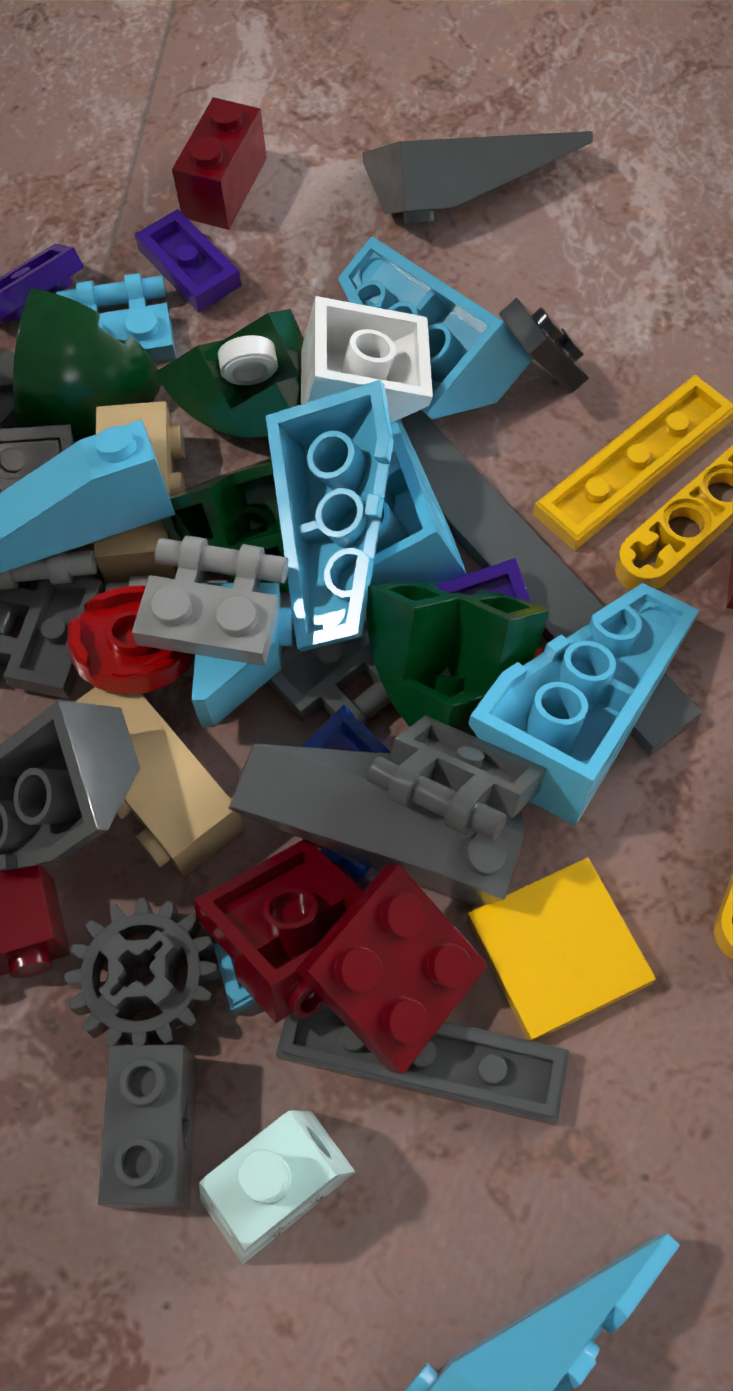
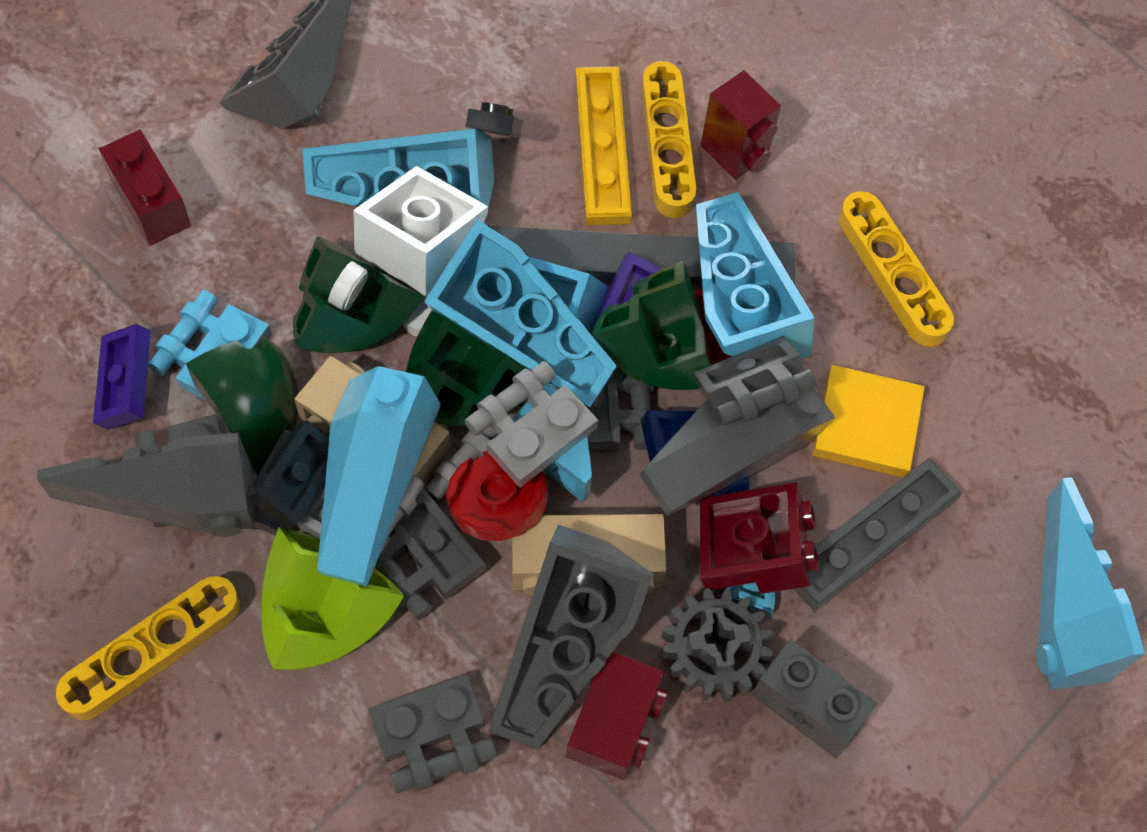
camera: 60 degrees left, 0 degrees up
(188, 260) = (204, 266): dark purple plate -> none
(273, 1181) = (896, 648): light aqua torso -> none
(393, 968) = (828, 501): dark red plate -> none

